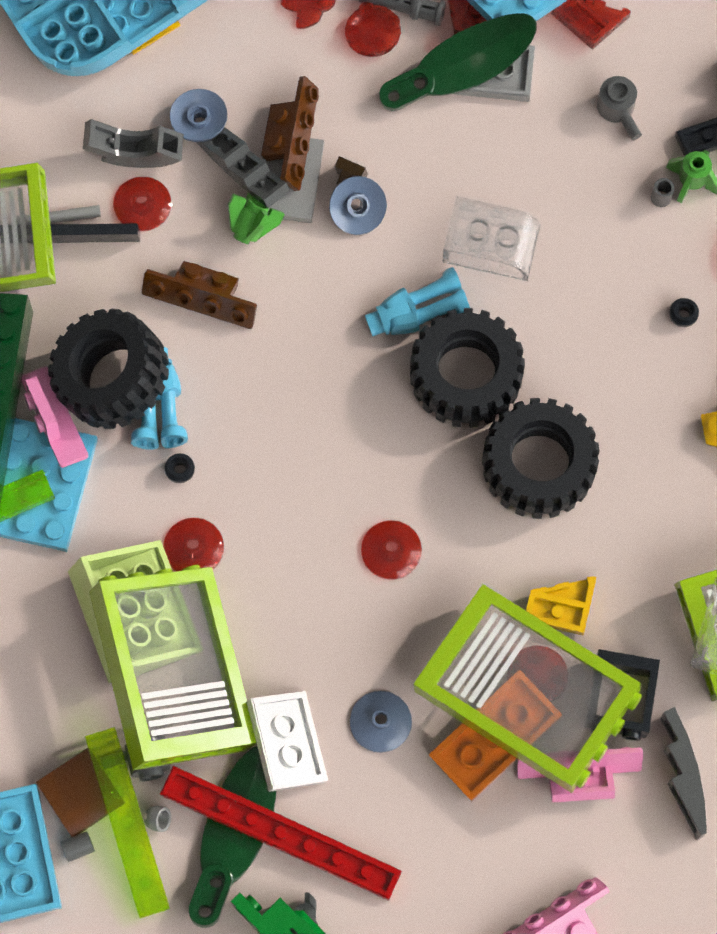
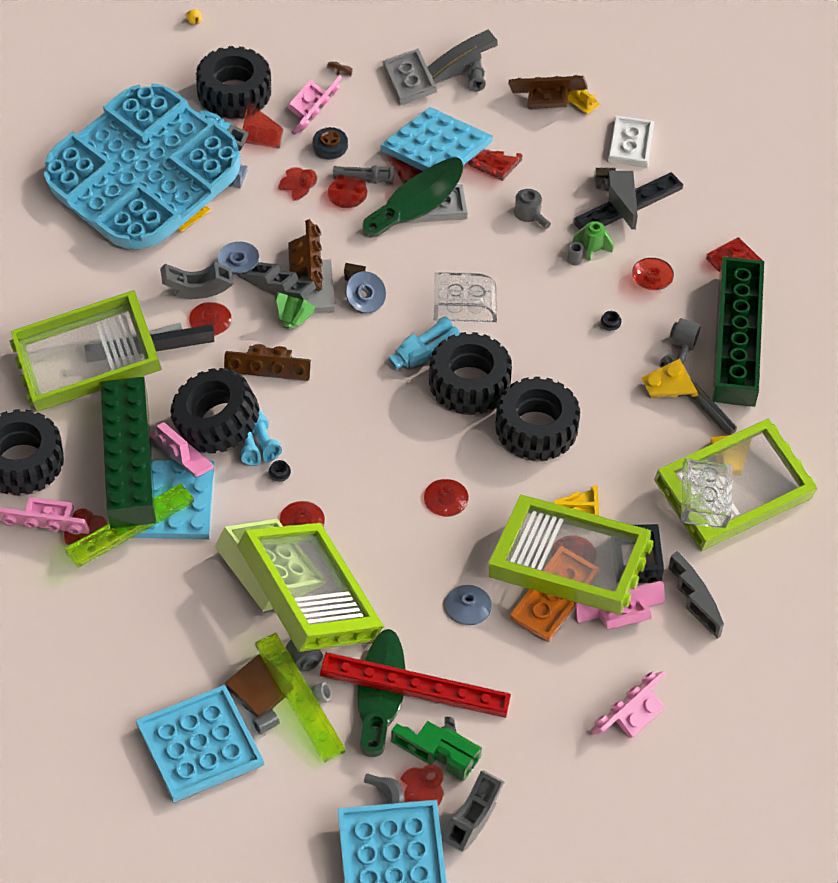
camera: 15 degrees left, 20 degrees down
(287, 741) = (404, 624): white tile -> none

